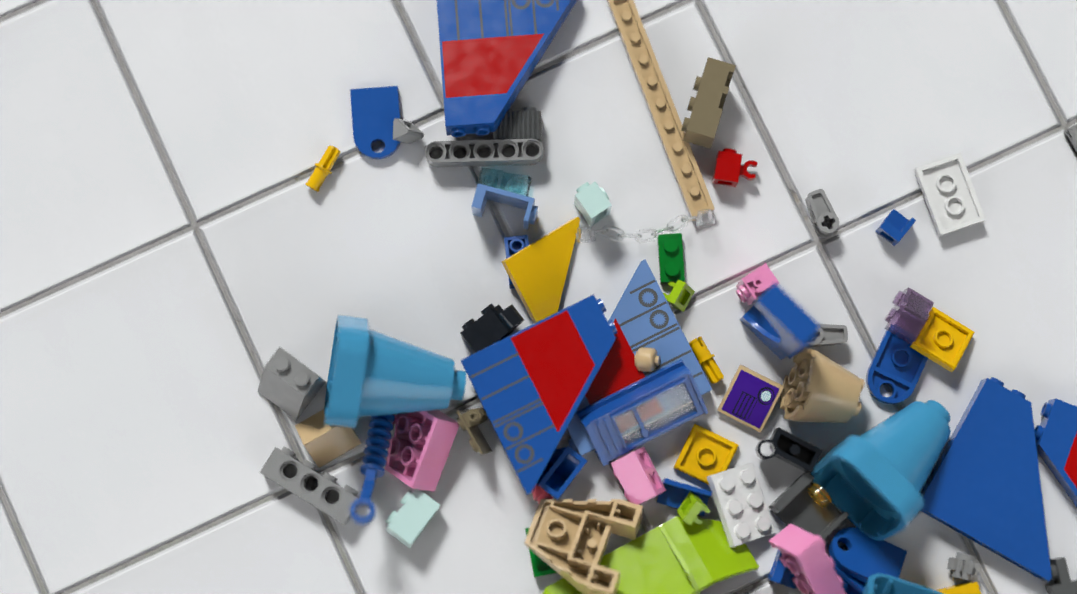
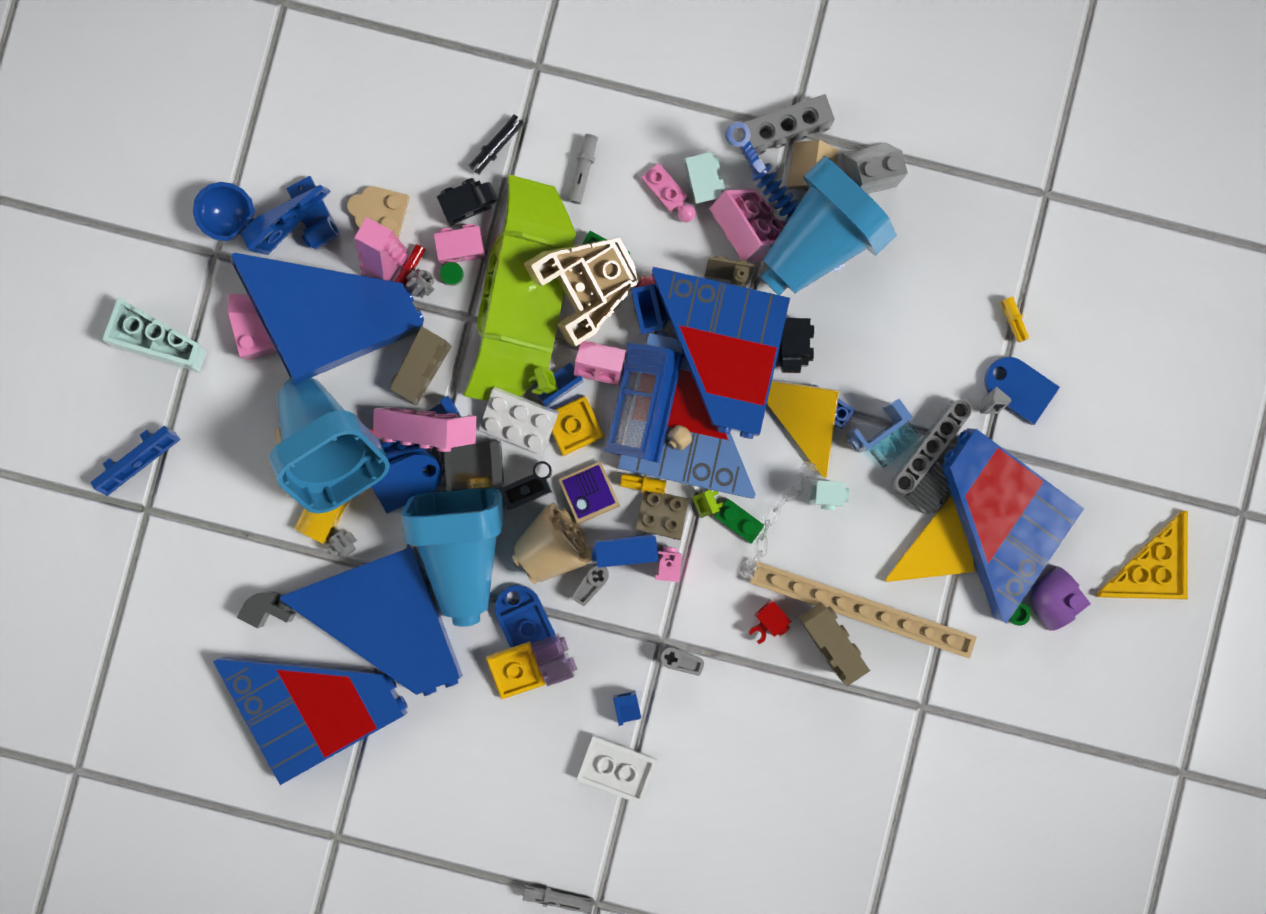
camera: 125 degrees right, 5 degrees up
(447, 537) = (668, 192): none -> bright pink plate
(563, 83) = (937, 549): none -> yellow tile
(718, 323) = (662, 514): none -> dark tan hinge

